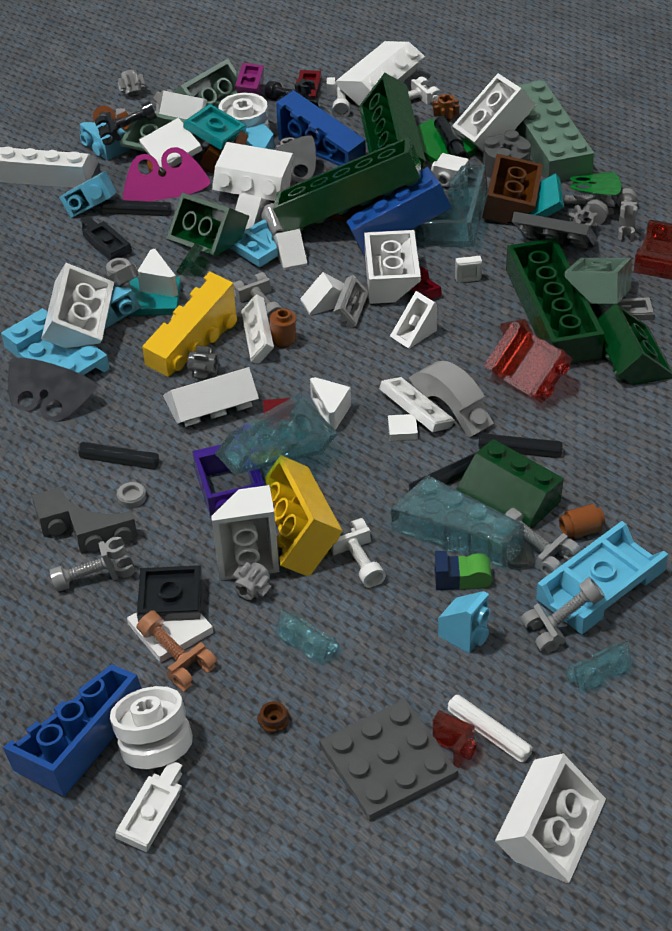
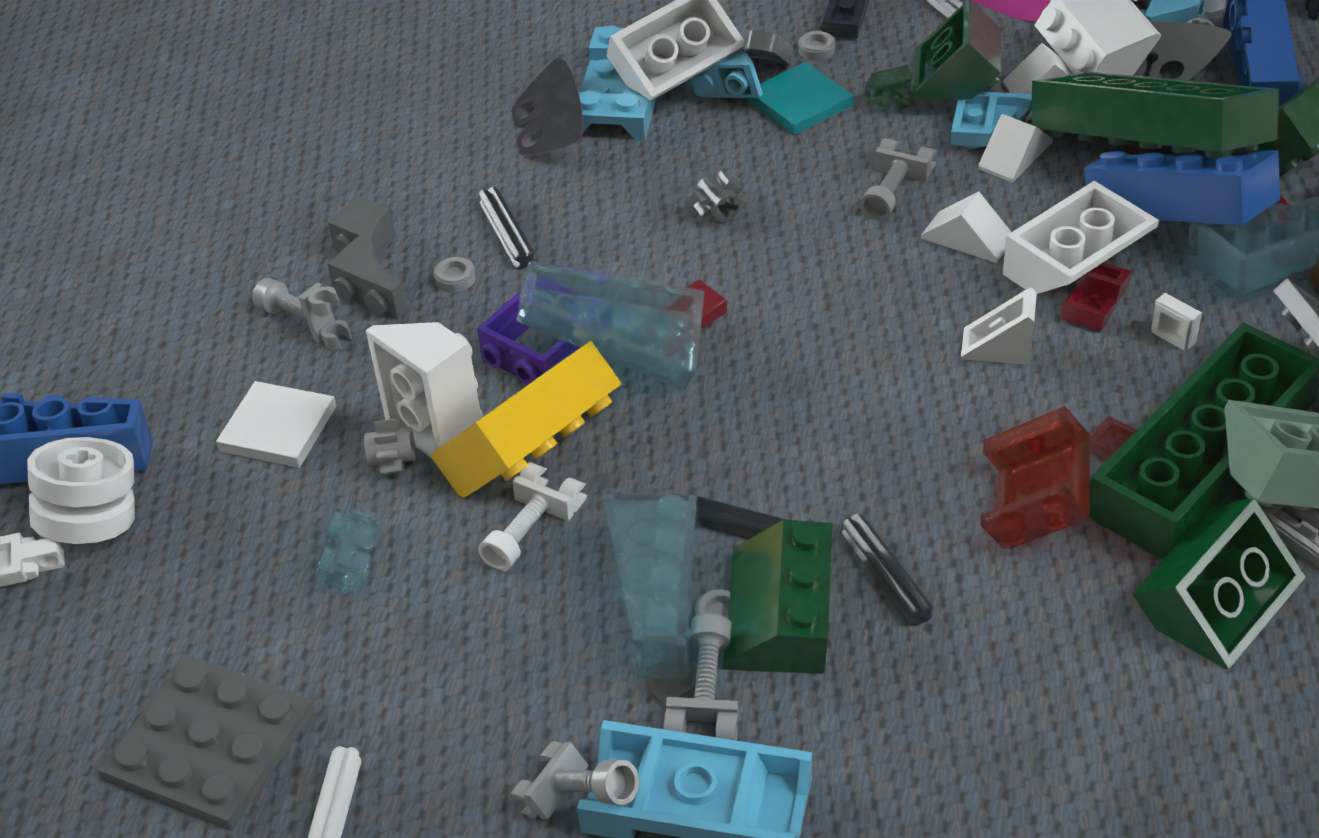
camera: 55 degrees right, 0 degrees up
(151, 625) = (240, 401): nougat bar -> none
(157, 276) = (817, 71): white slope -> none
(170, 592) = (314, 391): black tile -> none
(196, 324) = (765, 151): yellow wedge -> none
(212, 397) = (666, 238): white slope -> none
(257, 329) = (829, 205): white tile -> none
(271, 710) = (196, 583): reddish brown plate -> none
(283, 327) = (850, 222): dark orange brick -> none
(330, 399) = (764, 342): white slope -> none
(348, 298) = (941, 262): light grey tile -> none
(402, 427) = (800, 434): white tile -> none
(416, 404) = (853, 422): white tile -> none
(455, 733) = (280, 789): clear red bracket -> none
(457, 391) = (889, 445): light grey arch -> none
(461, 571) = (577, 632): leg -> none
(465, 621) = (476, 687): medium azure slope -> none
(582, 521) = (791, 714): dark orange brick -> none

